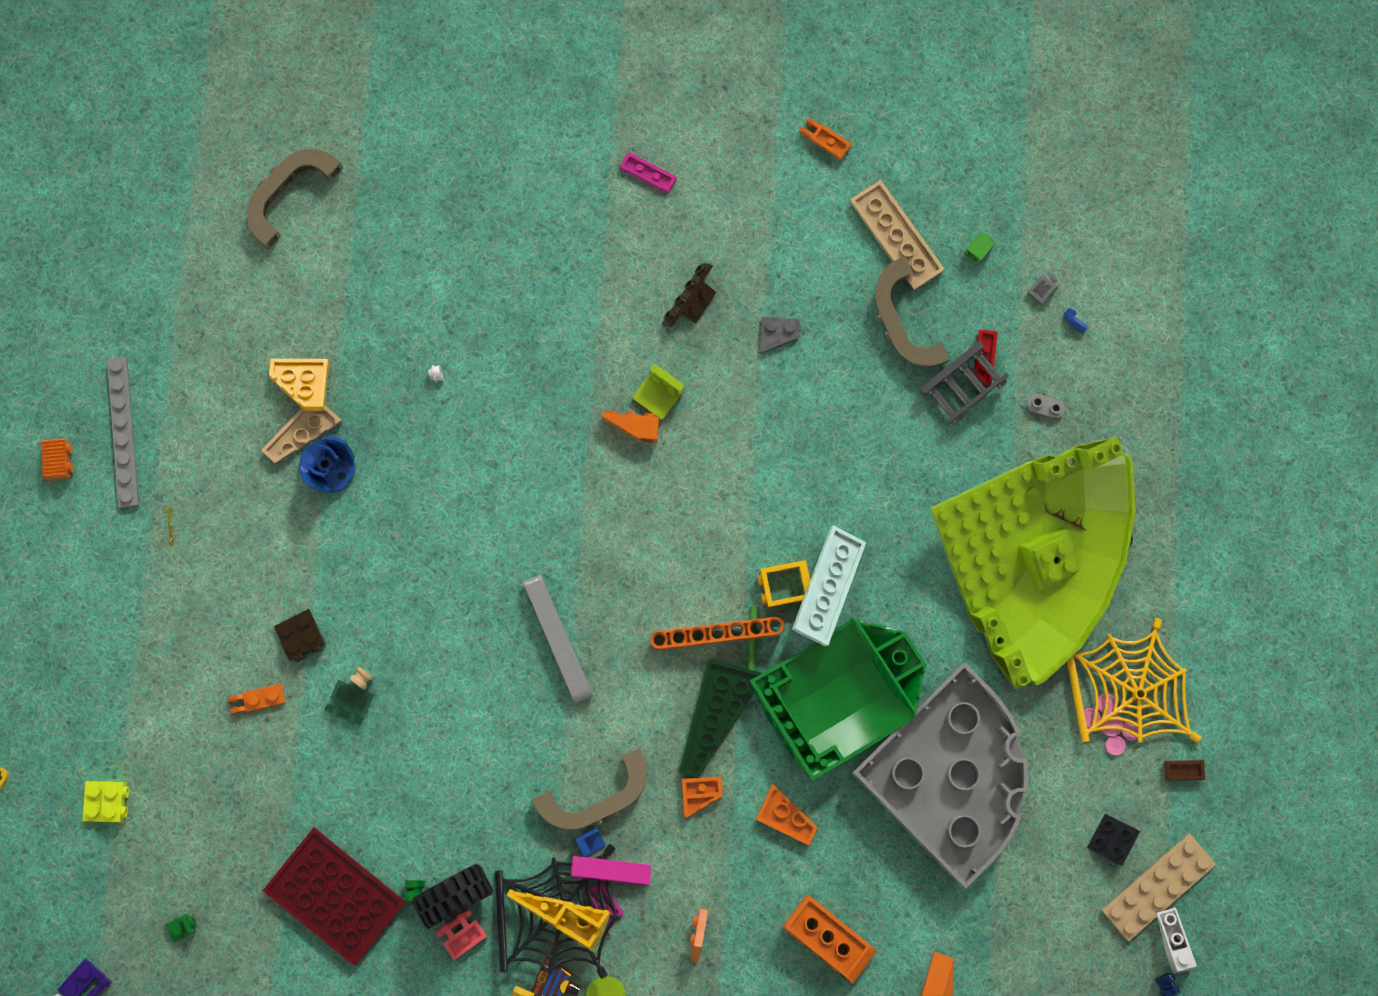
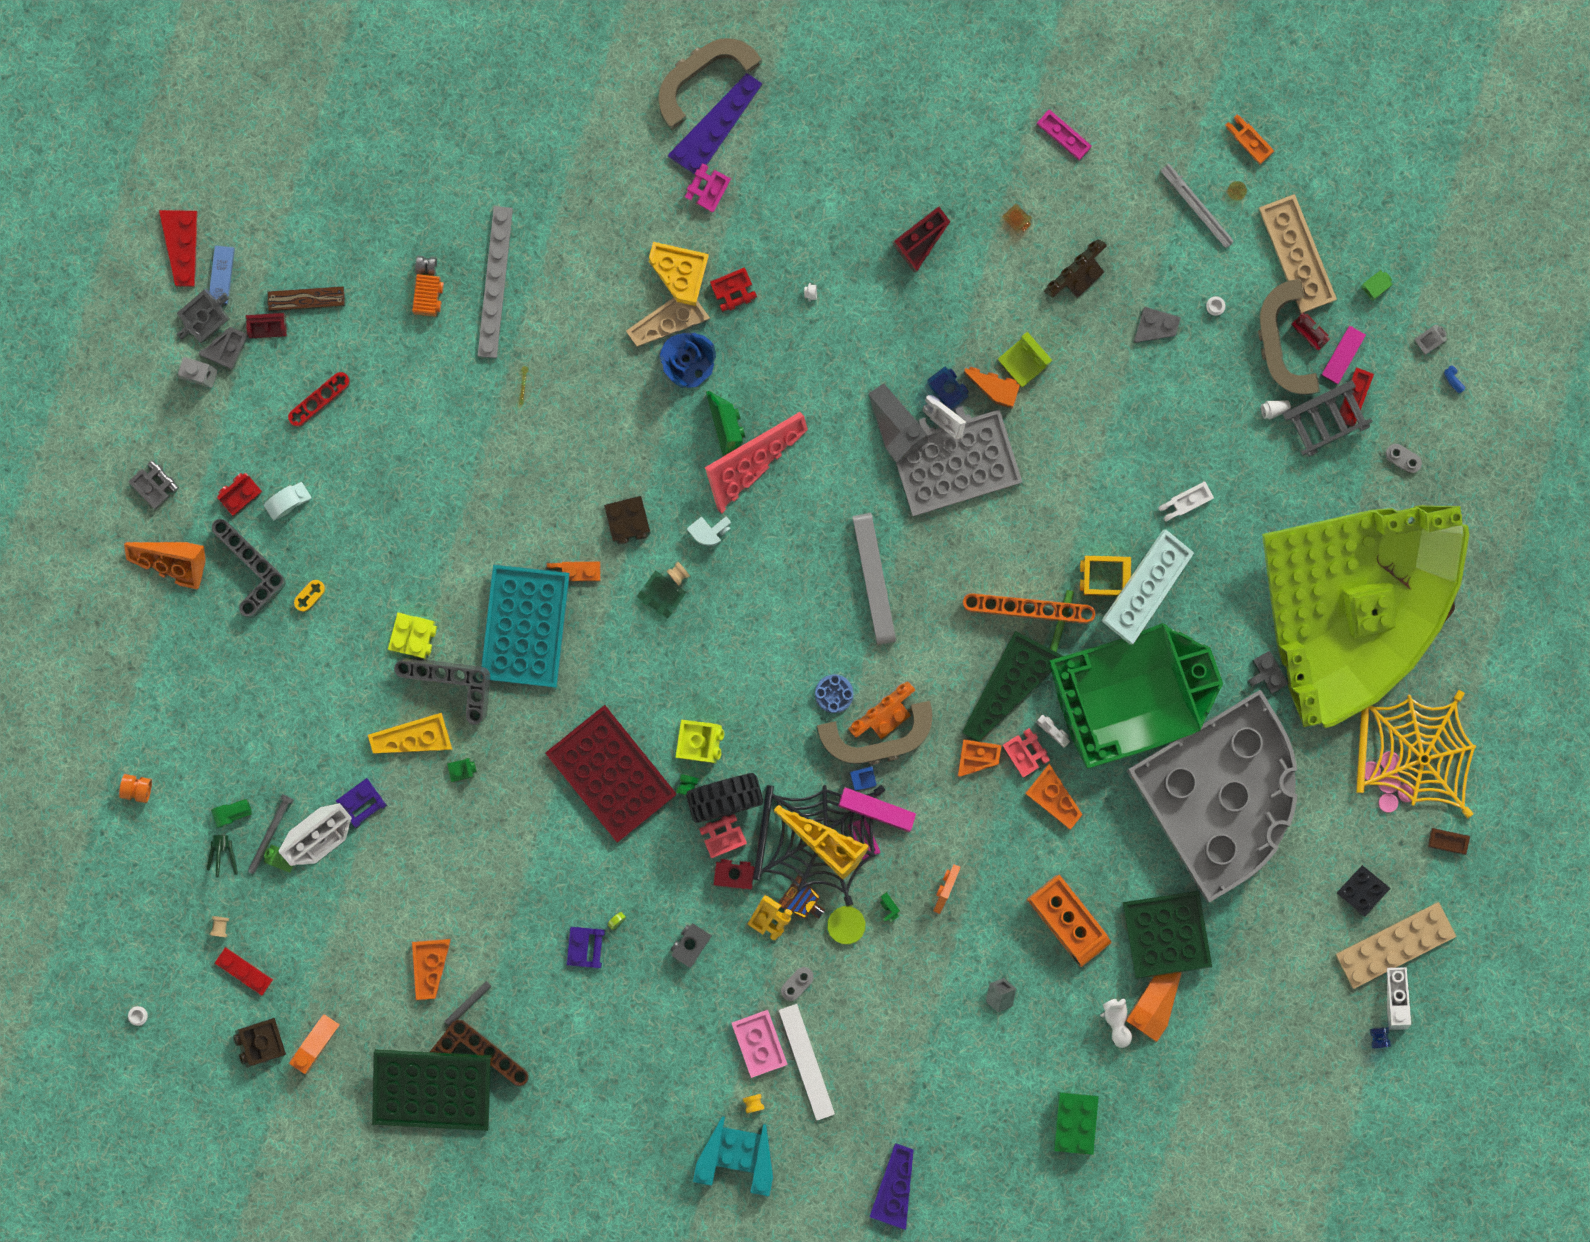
camera: 20 degrees right, 5 degrees up
(49, 430) = (425, 265): none -> flat silver wheel
(126, 904) = (419, 735): none -> yellow wing
(151, 834) = (452, 678): none -> dark grey beam
(216, 766) = (525, 625): none -> teal plate
(305, 245) = (709, 134): none -> dark purple wing
(319, 296) = (712, 191): none -> dark pink plate
(355, 383) = (730, 284): none -> red plate
(380, 522) = (726, 423): none -> green wedge
(383, 633) = (705, 534): none -> light aqua brick
(409, 550) = (747, 463): none -> coral wing
(417, 842) = (699, 741): none -> neon yellow plate
(469, 976) = (722, 877): none -> dark red brick
(530, 298) = (919, 239): none -> dark red wedge
(543, 762) = (834, 693): none -> medium blue tile
(548, 484) = (897, 426): none -> dark grey wedge
(592, 464) = (944, 417): none -> white hinge
(593, 447) = (937, 384): none -> clear blue brick
(599, 772) = (886, 714): none -> orange bracket
(613, 506) = (960, 468): none -> light grey hinge
(621, 260) = (1017, 219): none -> clear orange bracket
(645, 965) = (887, 904): none -> green bracket
(742, 782) = (1020, 754): none -> coral plate
(762, 745) = (1048, 726): none -> white wing
(766, 193) = (1197, 205): none -> light grey axle
(825, 189) = (1237, 190): none -> tile
(830, 301) = (1215, 306): none -> white plate
(848, 493) = (1188, 500): none -> white hinge
(910, 386) = (1272, 409): none -> white cone
(930, 930) = (1167, 934): none -> dark green plate
(934, 309) = (1316, 338): none -> dark red hinge
(963, 321) = (1343, 355): none -> dark pink tile
(967, 643) = (1268, 672): none -> dark grey plate

